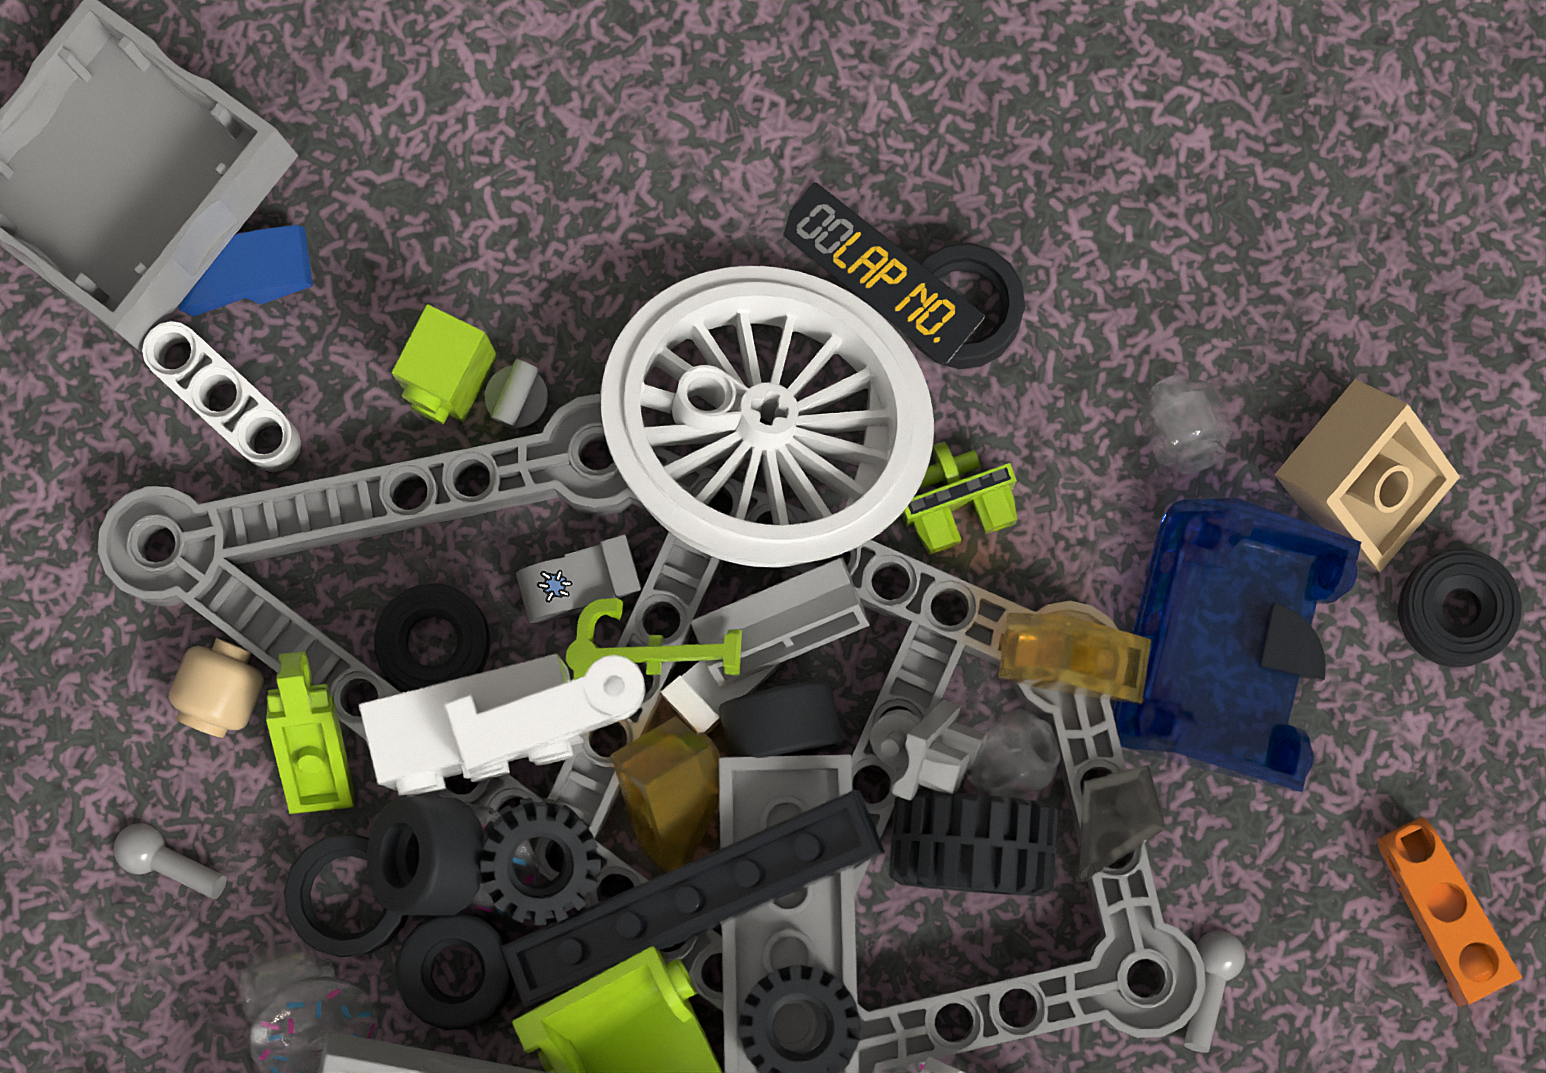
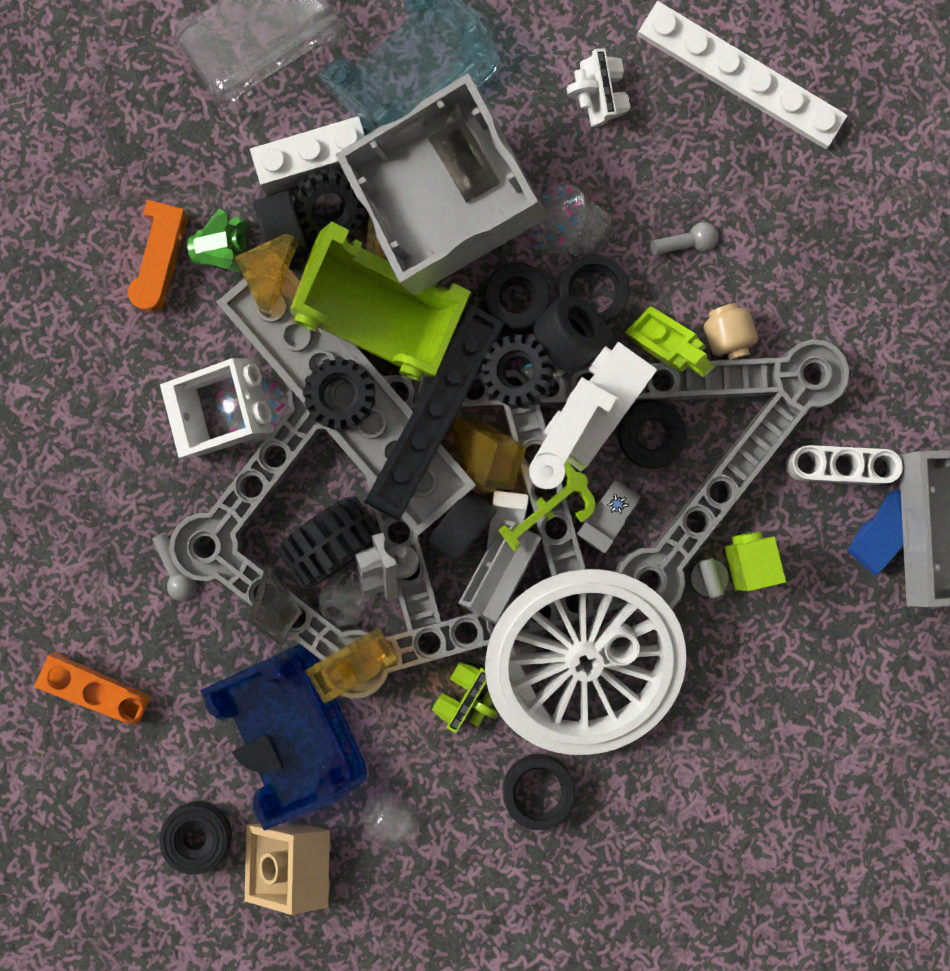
camera: 130 degrees right, 5 degrees up
(881, 273) = (589, 775): black sticker -> none

